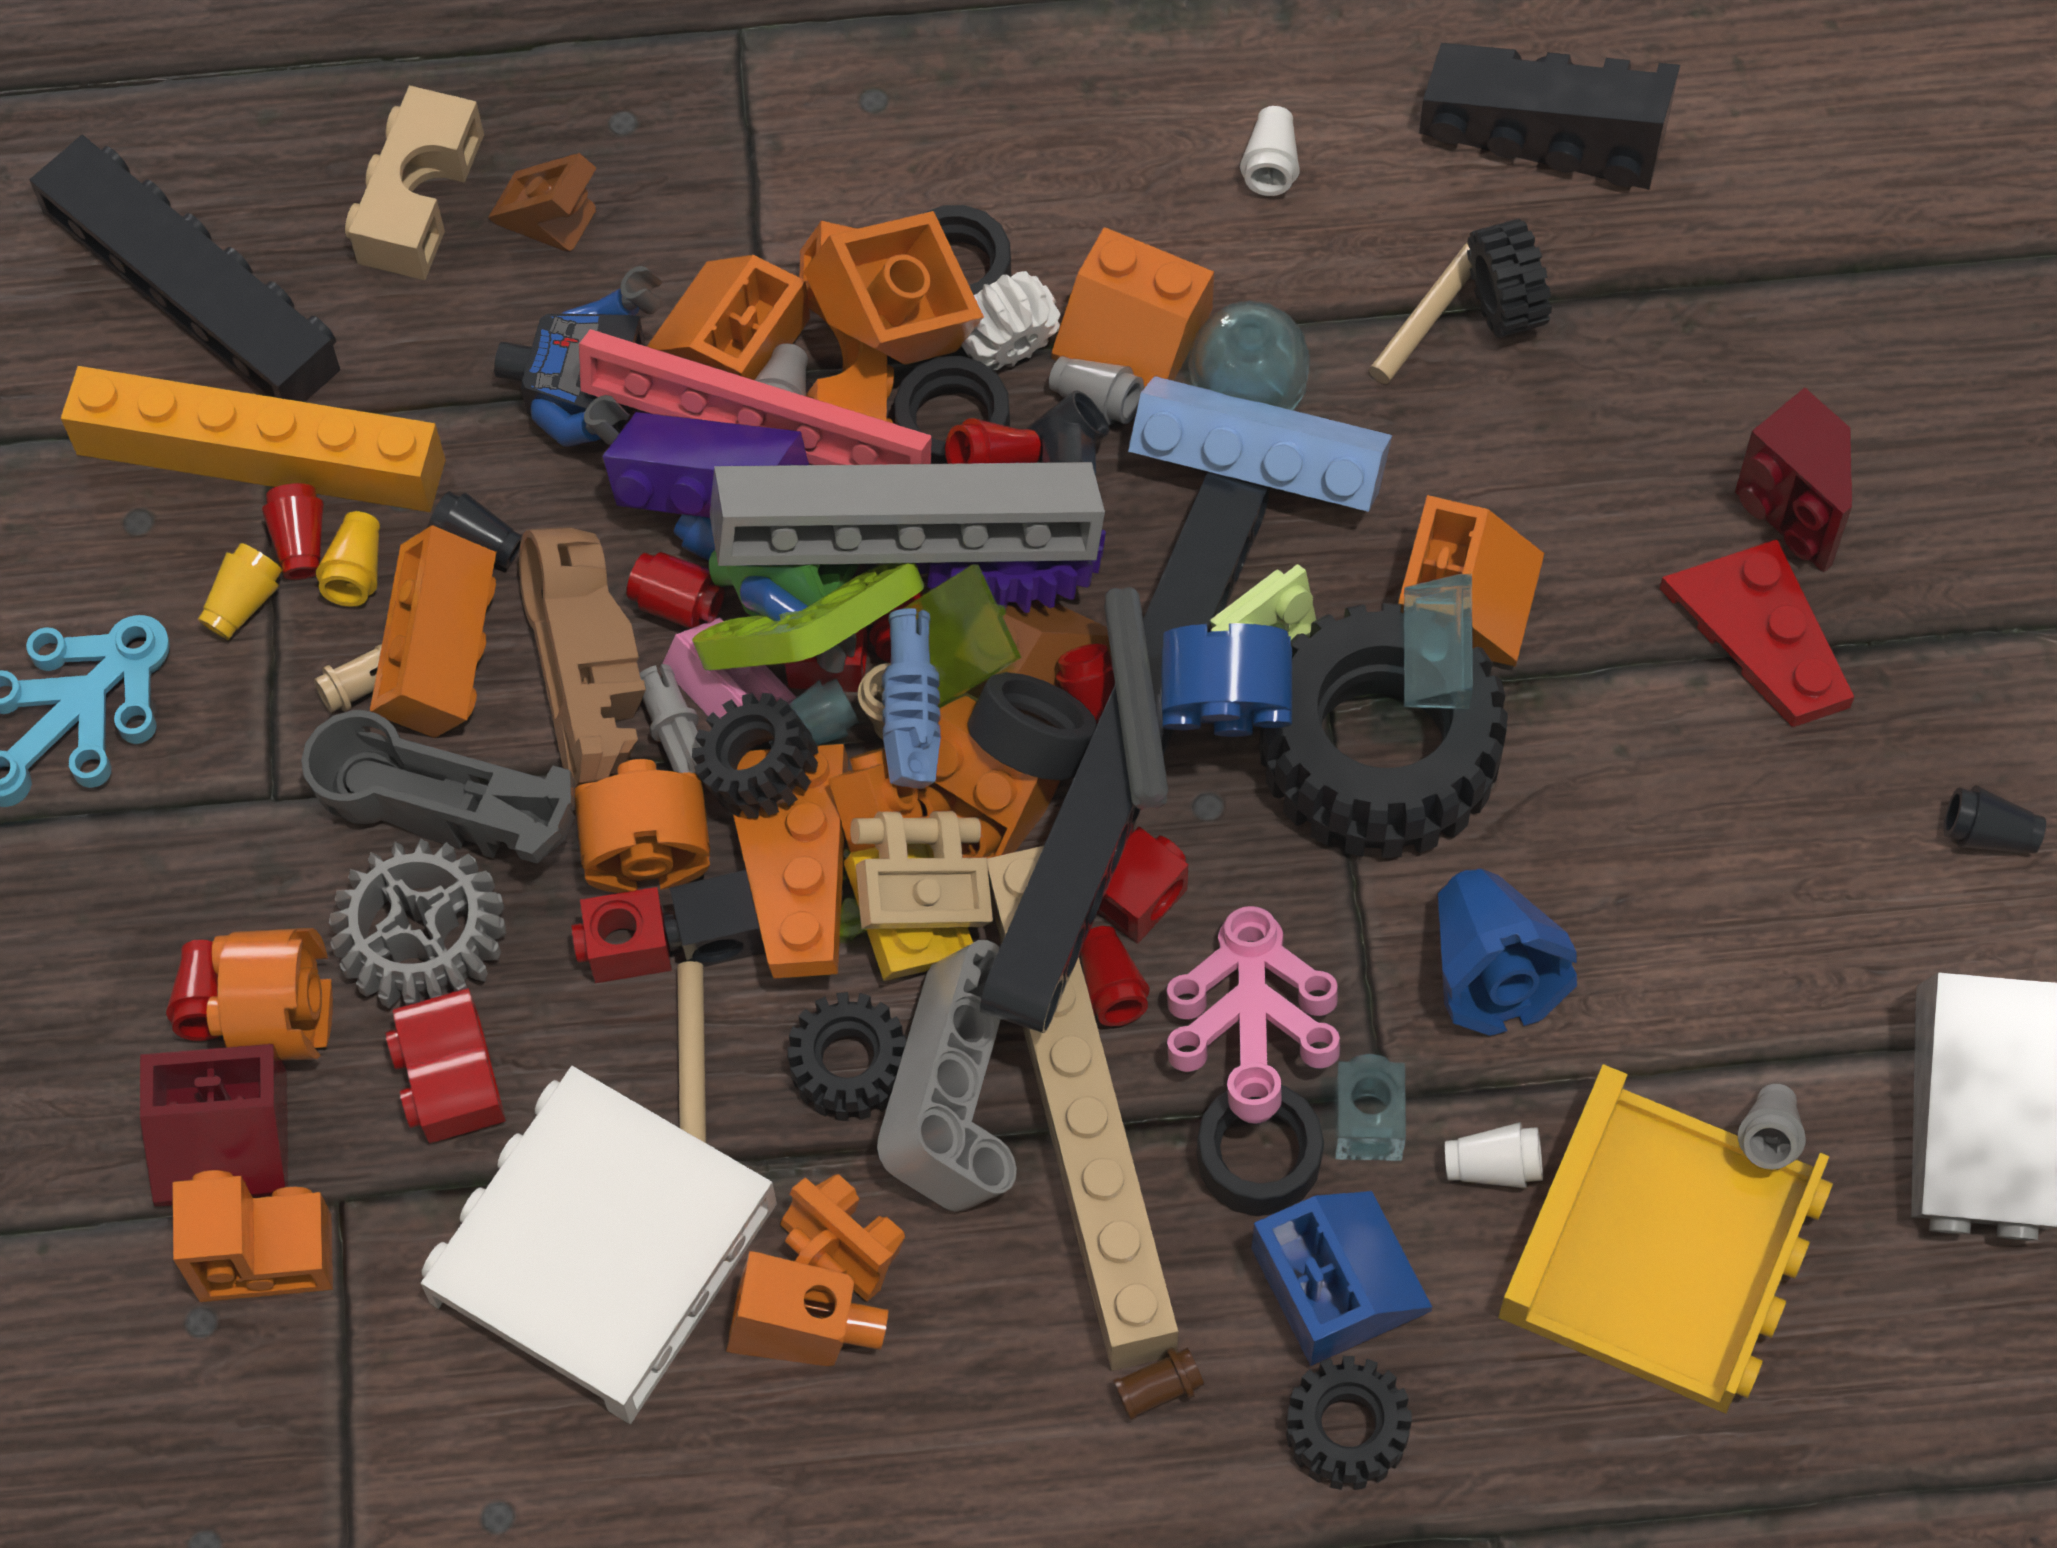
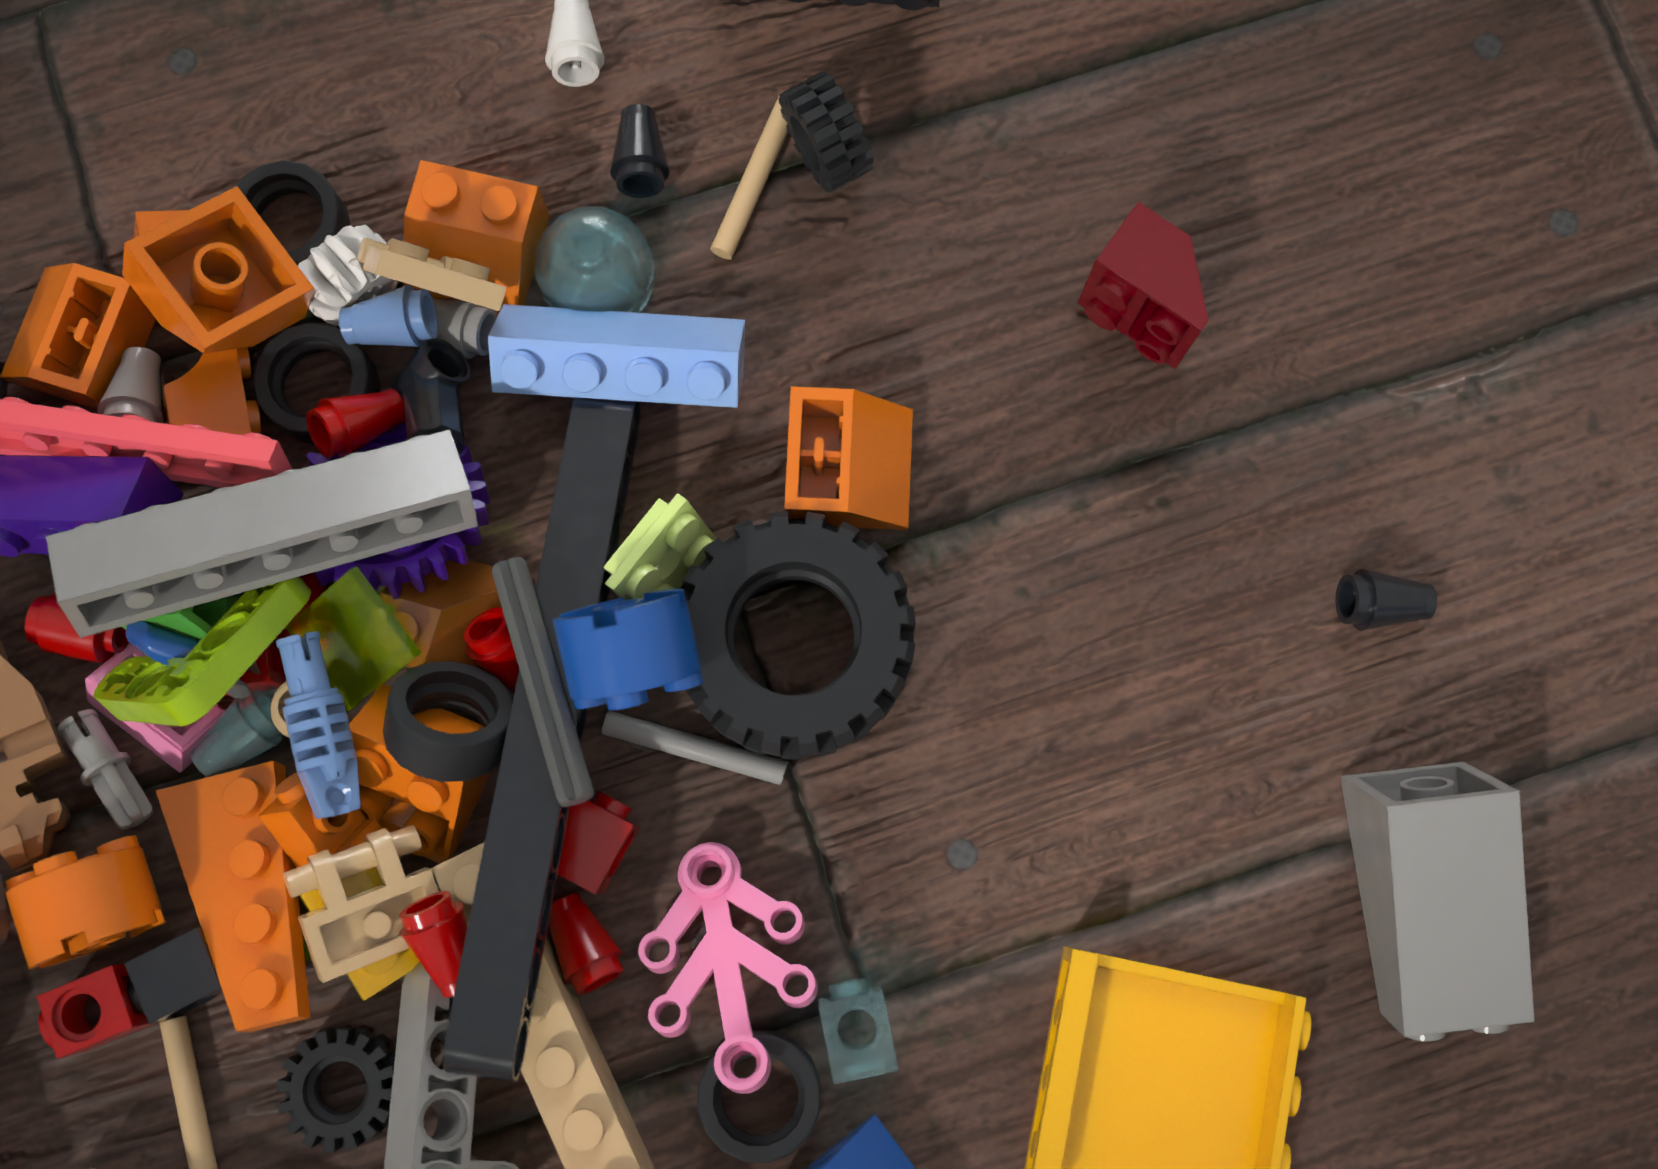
camera: 15 degrees left, 15 degrees up
(739, 732) = (154, 795): black tyre -> none
(985, 911) = (436, 935): none -> red cone
(1045, 364) = (391, 319): none -> medium blue cone
(1111, 335) = (448, 276): none -> tan plate
(1259, 824) = (694, 747): none -> light grey bar
(1316, 267) = (639, 154): none -> black cone
(1438, 643) = (832, 555): clear light blue slope -> none
(1496, 1157) = (986, 1052): white cone -> none
(1499, 954) = (946, 843): blue cone -> none
(1767, 627) = (1135, 440): red wing -> none
(1772, 1129) = (1243, 971): light grey cone -> none

